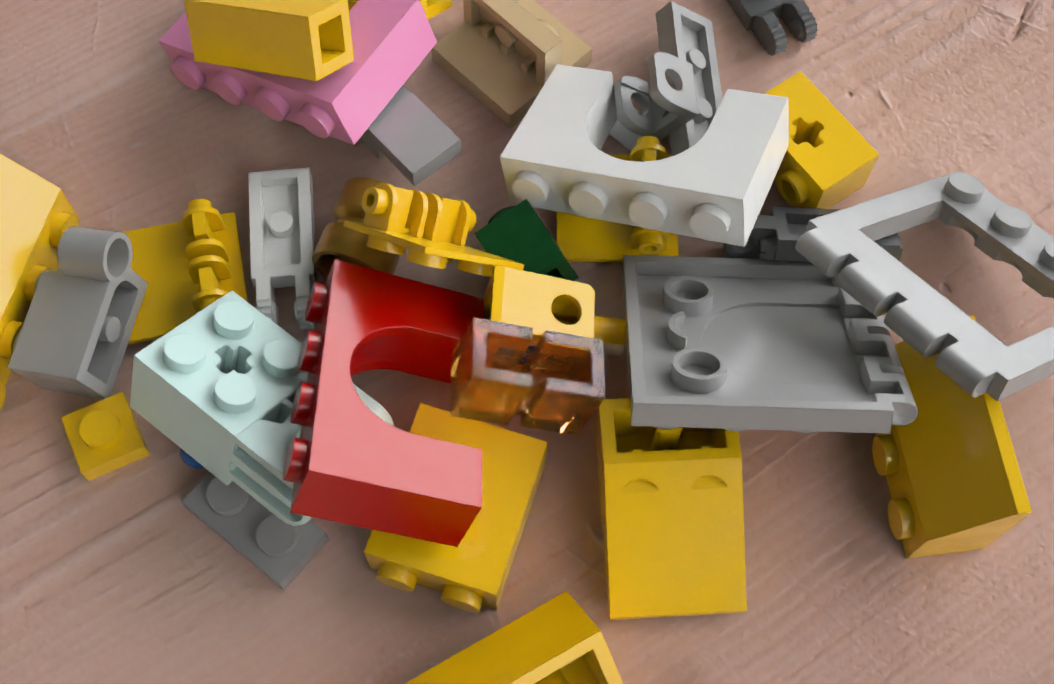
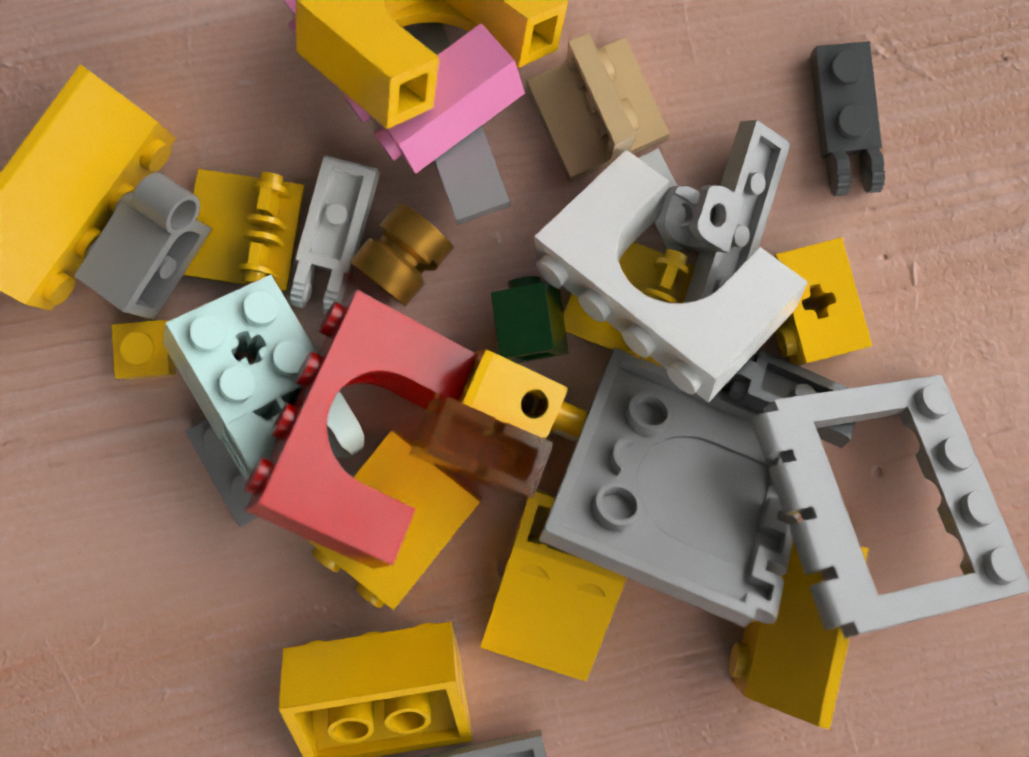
camera: 30 degrees right, 20 degrees up
(427, 225) = (444, 295): yellow hinge -> none

